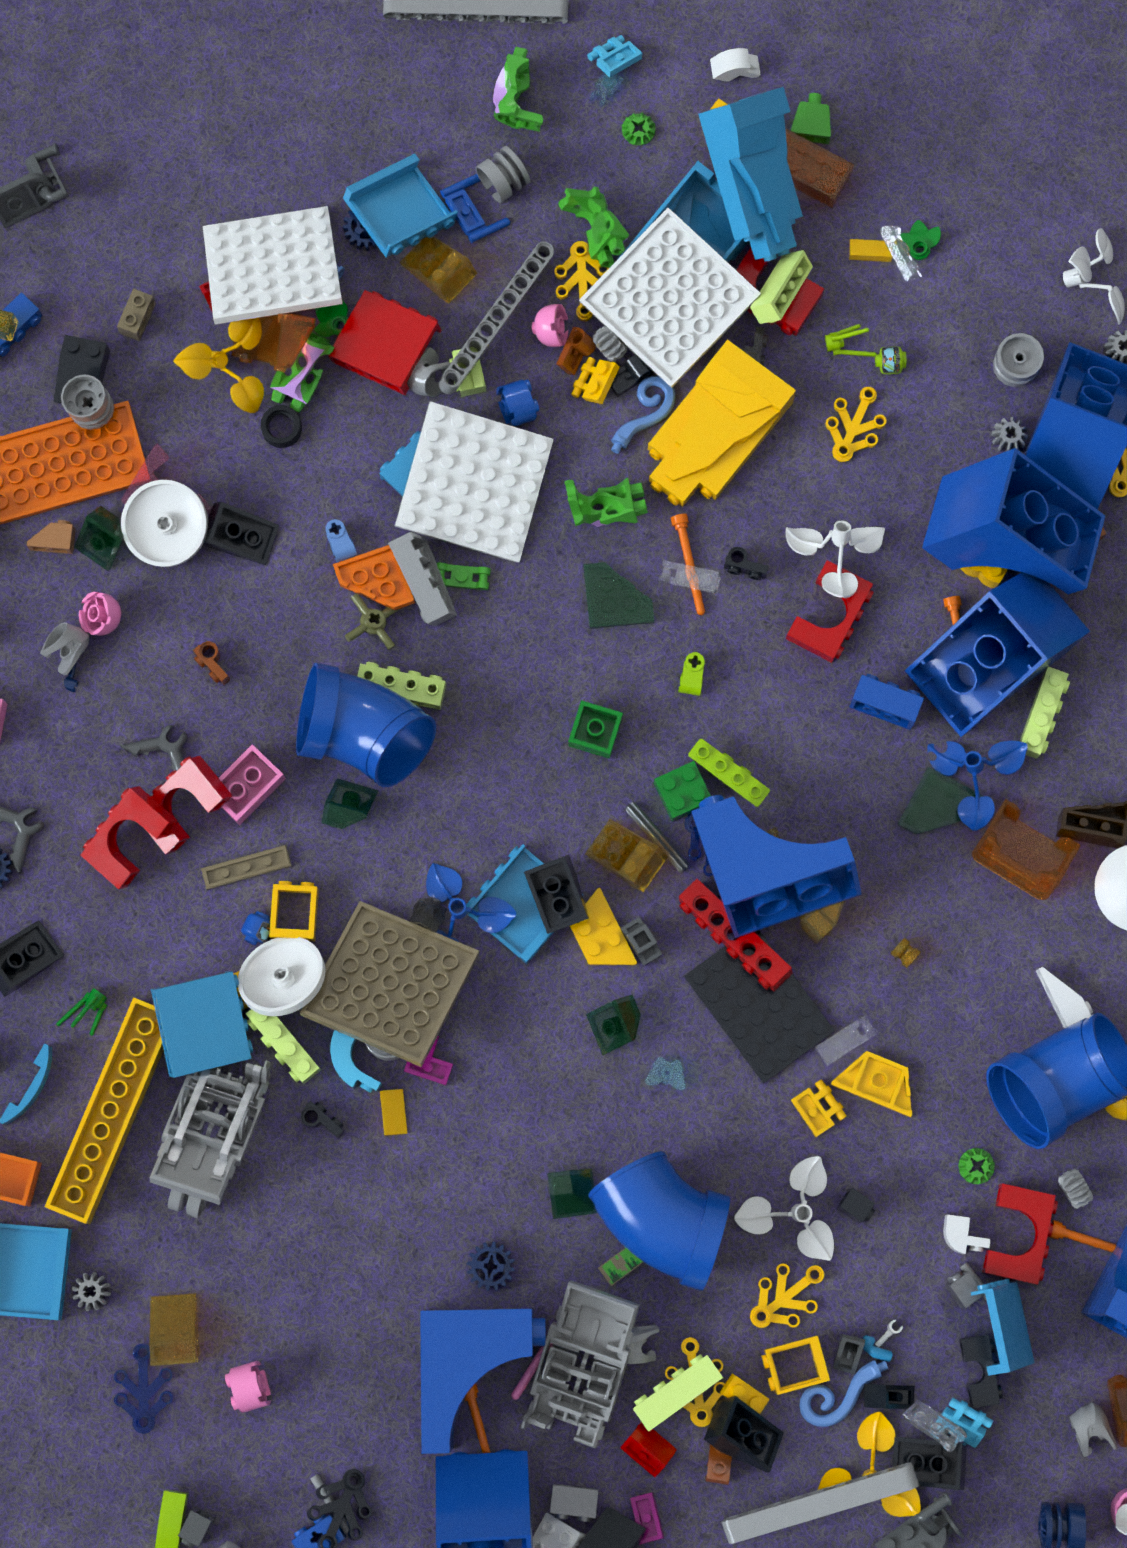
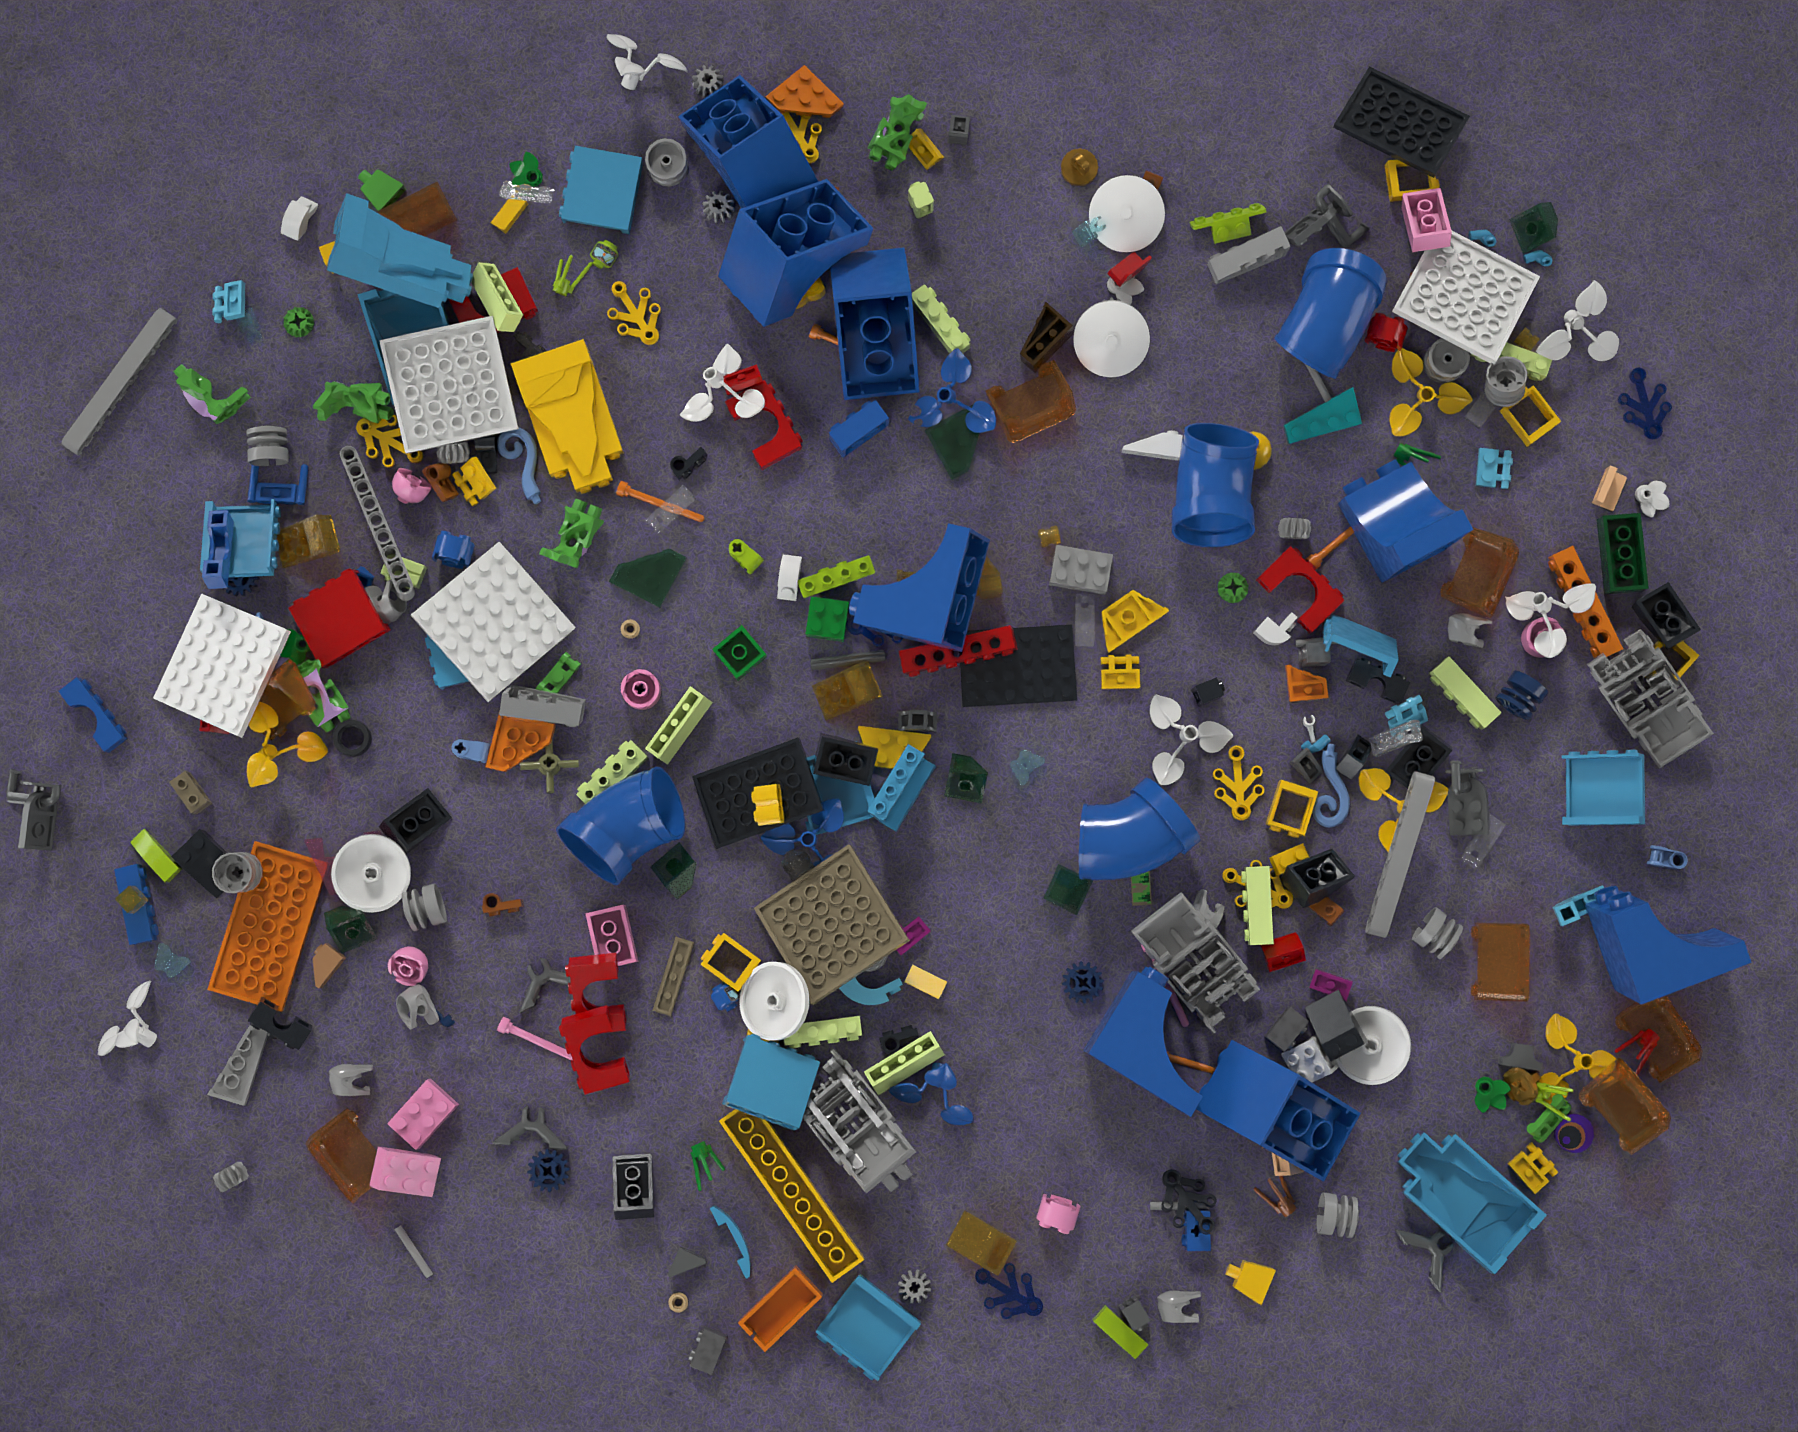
camera: 60 degrees left, 5 degrees up
(57, 322) = (156, 856): none -> lime slope
(100, 742) = (506, 1026): none -> bright pink piece
(144, 207) = (107, 733): none -> blue arch
(163, 592) = (419, 908): none -> light grey wheel
(301, 1141) = (904, 1063): none -> yellowish green brick
(307, 1183) = (939, 1076): none -> blue plant
(394, 184) = (216, 568): none -> blue arch
(439, 340) = (365, 577): none -> blue slope
(466, 848) = (768, 804): none -> yellow brick
(472, 833) = (728, 790): none -> black plate
(488, 717) = (678, 725): none -> yellowish green brick
(505, 649) = (636, 680): none -> bright pink brick
(551, 607) = (625, 624): none -> tan plate
(564, 965) = (901, 788): none -> dark azure panel
(699, 727) = (789, 577): none -> white brick
(859, 563) = (743, 379): none -> red panel
(893, 1004) = (1080, 569): none -> light grey brick
(927, 1300) = (1304, 685): none -> orange wing
(951, 318) = (601, 188): none -> dark azure panel
(1026, 1467) = (1464, 693): none -> yellowish green brick

